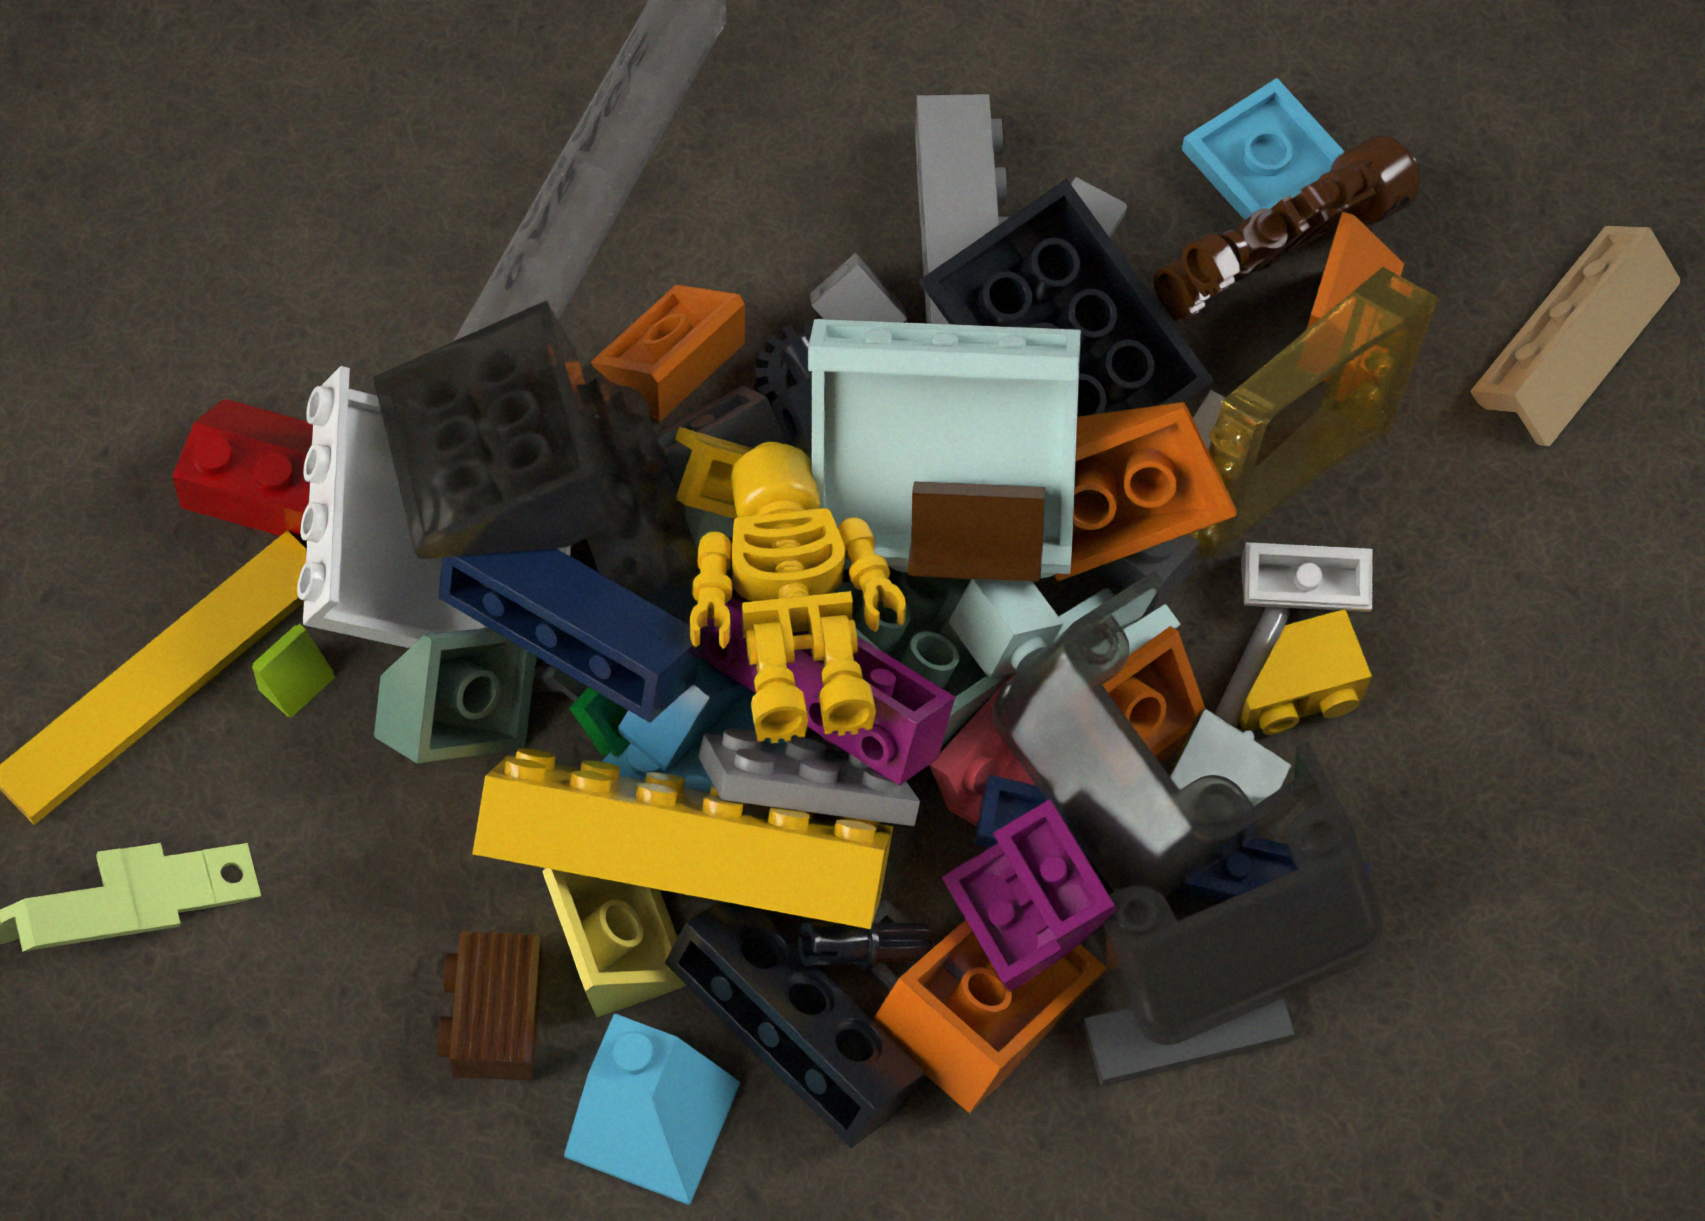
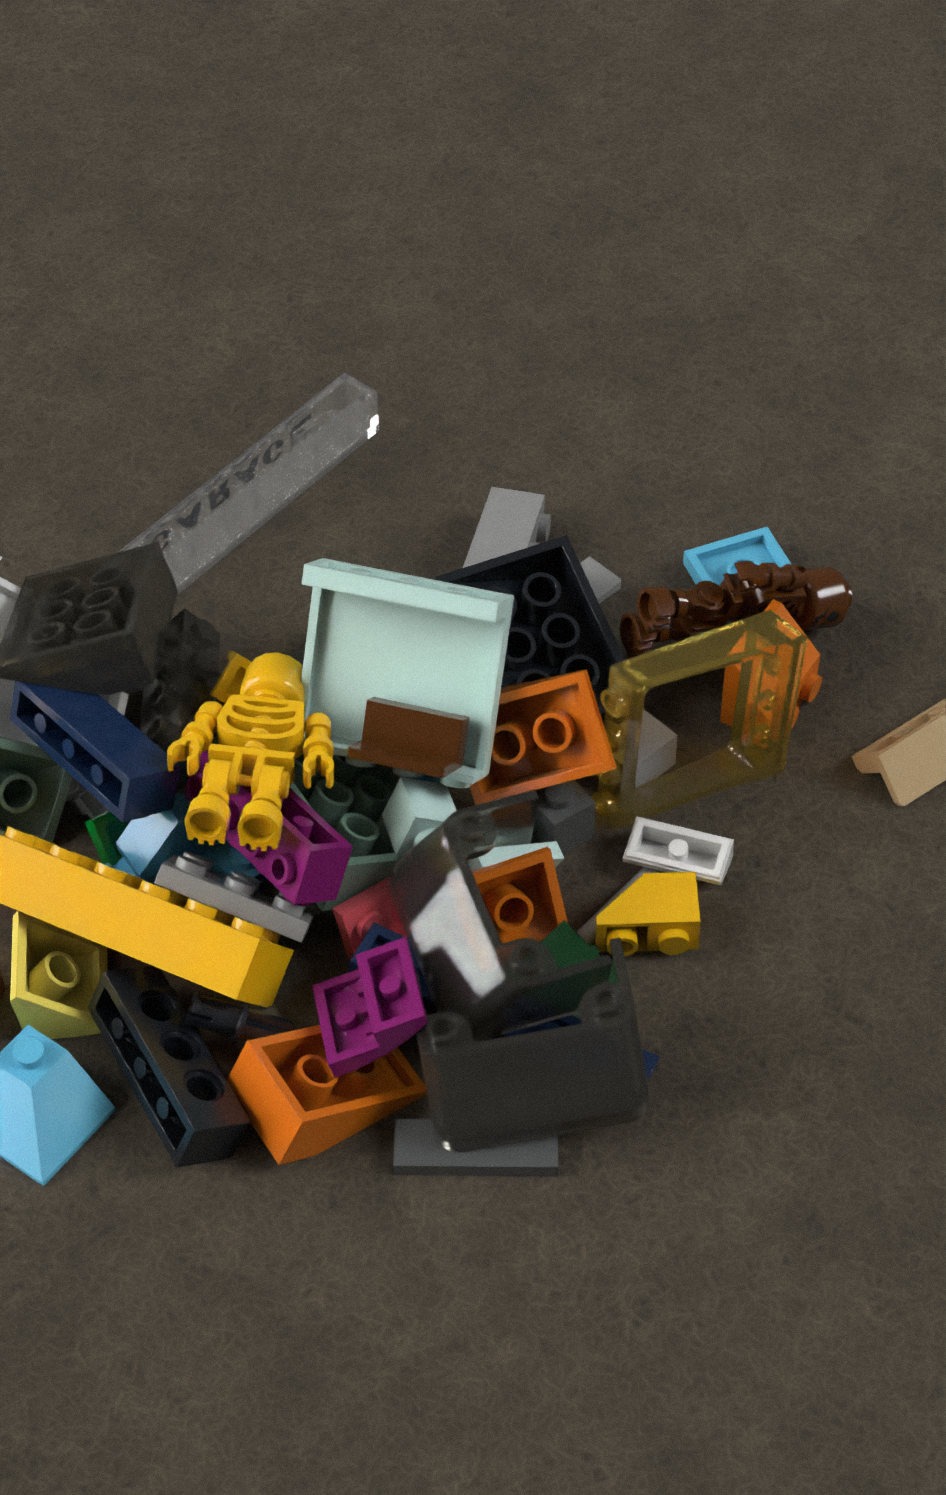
camera: 20 degrees right, 15 degrees down
(675, 345) = (263, 618): orange slope -> none

